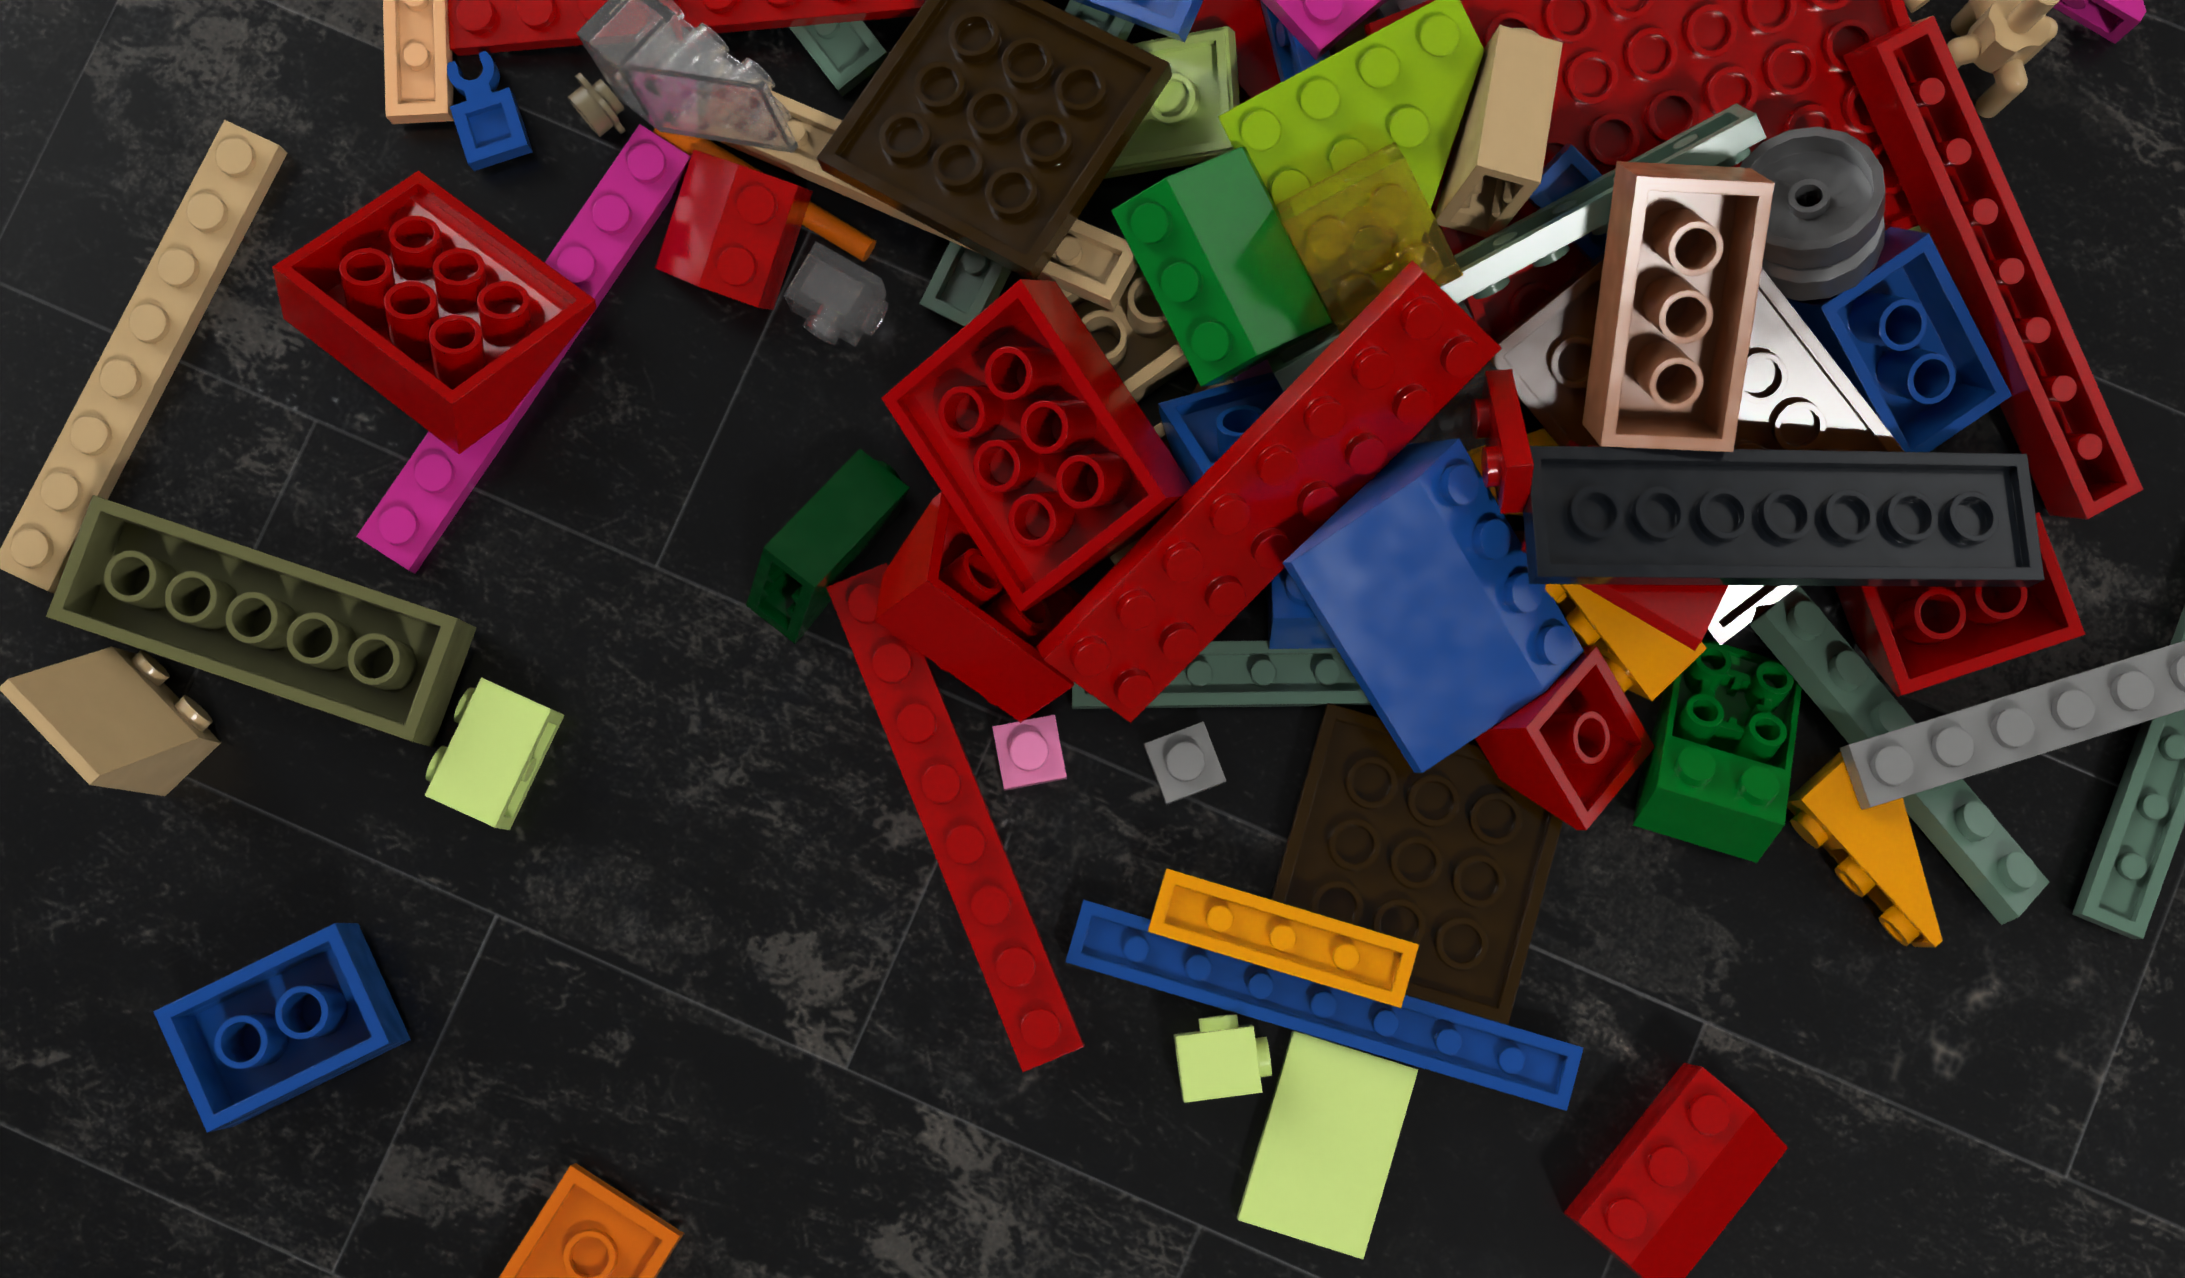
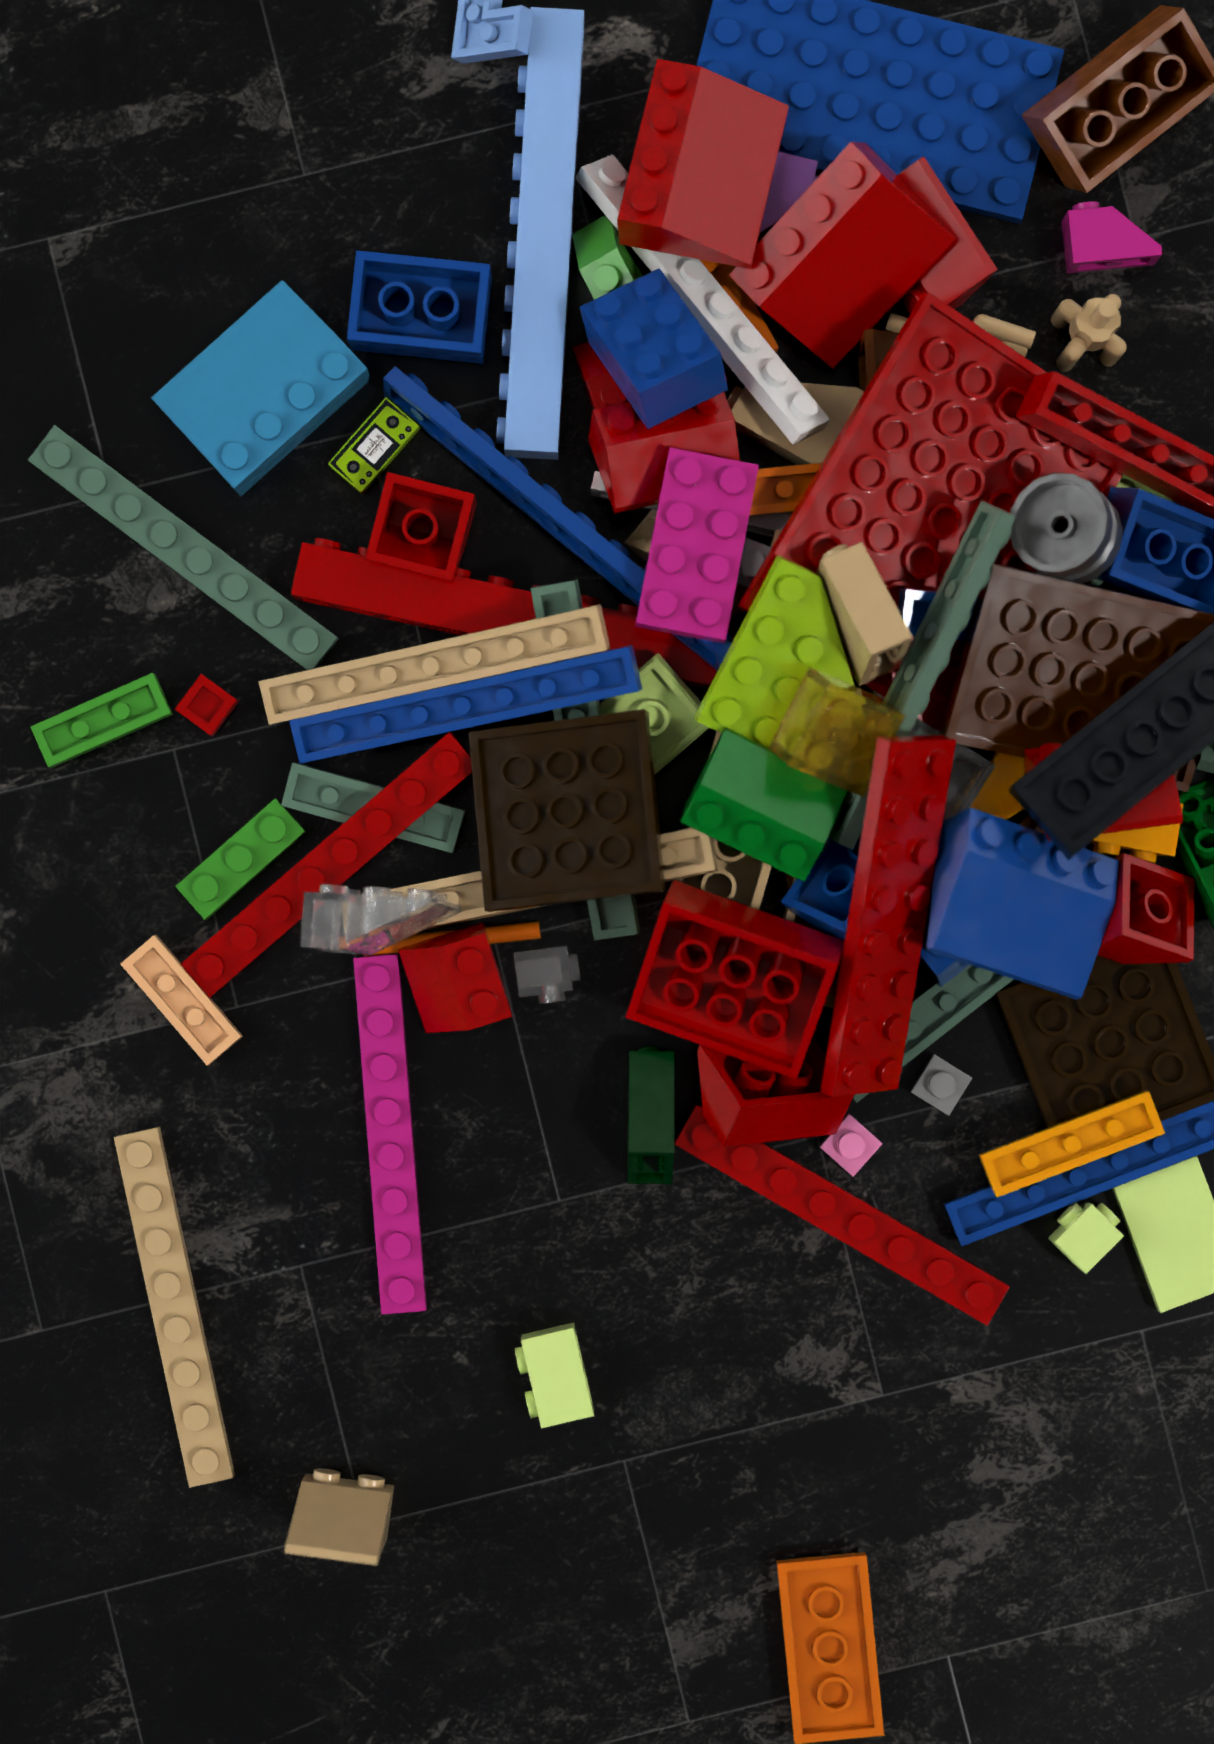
camera: 40 degrees left, 5 degrees up
(262, 621) = (372, 1403): olive brick -> none
(281, 1026) = (562, 1611): blue brick -> none
(432, 308) = (326, 1154): red slope -> none
(488, 120) = (266, 1024): blue plate -> none
(597, 105) = (321, 966): dark tan plate -> none
(1507, 453) = (1005, 799): red plate -> none
(1676, 305) = (1035, 646): nougat brick -> none

